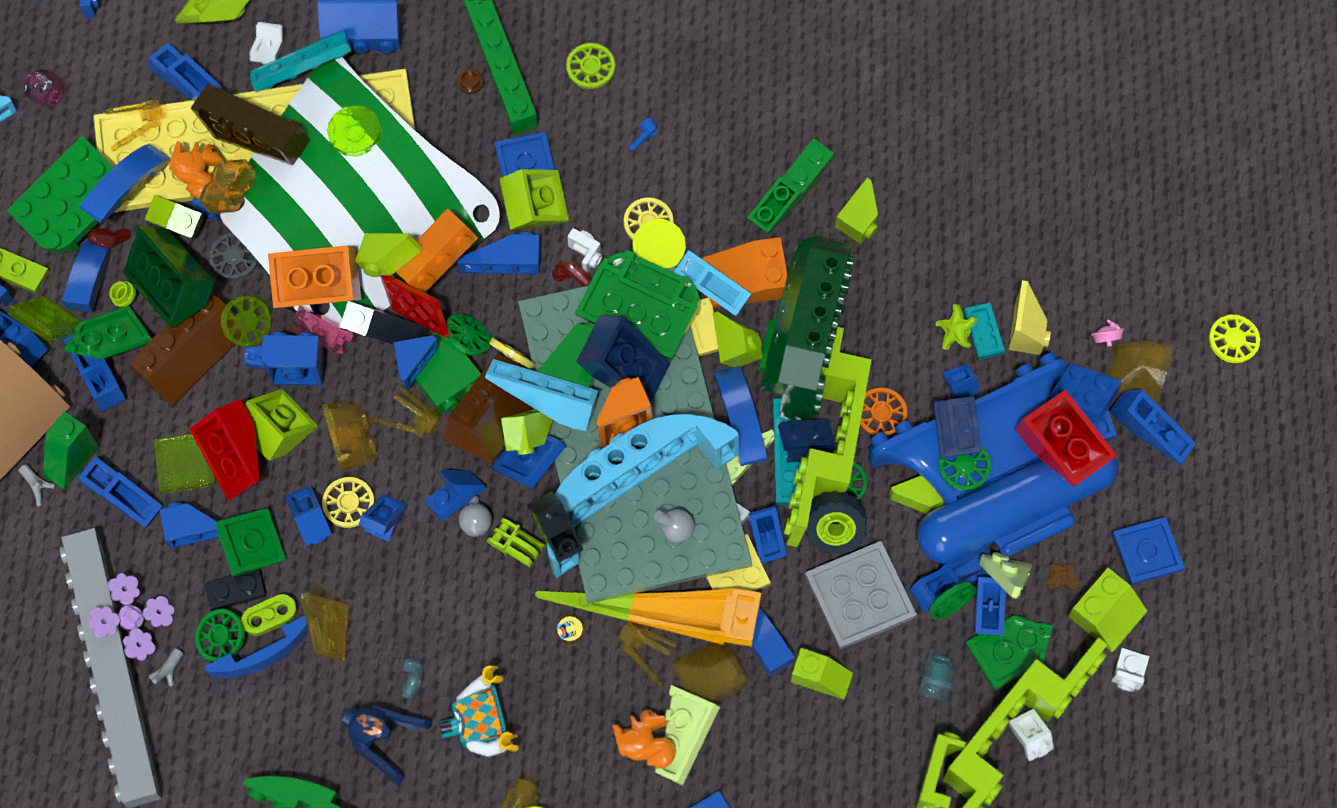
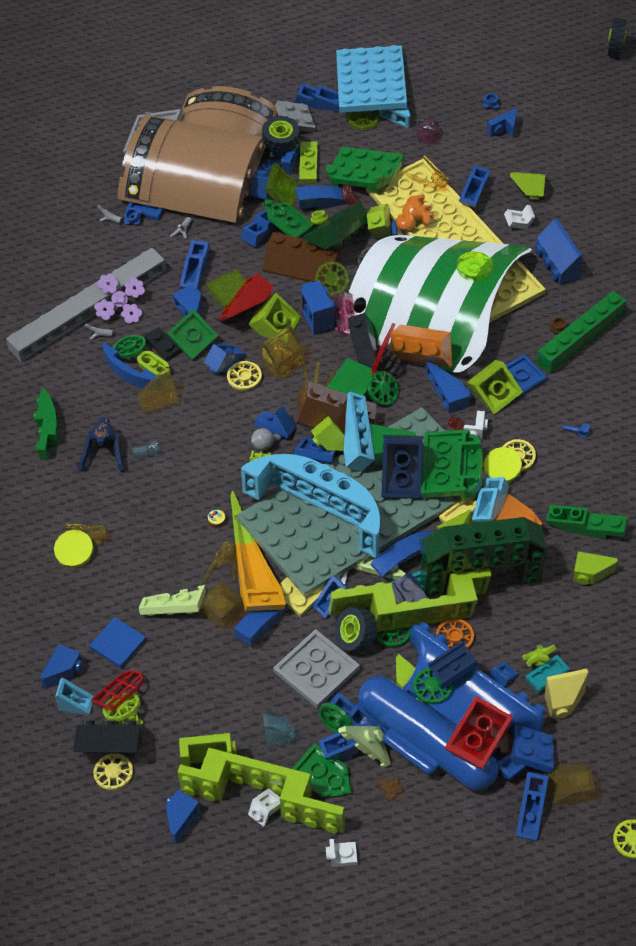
camera: 70 degrees right, 15 degrees down
(67, 450) = (207, 227): green slope -> none
(121, 180) = (384, 178): blue slope -> none
(227, 186) = (412, 228): clear yellow brick -> none
(249, 126) = (452, 219): dark brown wedge -> none
(300, 61) = (511, 232): teal plate -> none
(314, 276) = (370, 289): orange slope -> none
(383, 517) = (241, 393): blue slope -> none
(386, 252) = (403, 315): lime slope -> none
(413, 356) = (346, 360): blue slope -> none
(480, 717) = (136, 490): torso -> none
(512, 353) = (381, 411): light yellow wheel -> none
(555, 526) = (260, 457): black slope -> none
(590, 66) = (609, 383): lime wheel -> none
(623, 410) = (361, 466): orange slope -> none
(640, 744) = (157, 579): orange animal -> none
(675, 525) = (305, 536): light grey piece -> none
(821, 674) = (249, 664): lime slope -> none
(1108, 333) = (589, 751): bright pink hat -> none
(1109, 610) = (378, 822): lime slope -> none
(1148, 551) = (436, 834): blue plate -> none

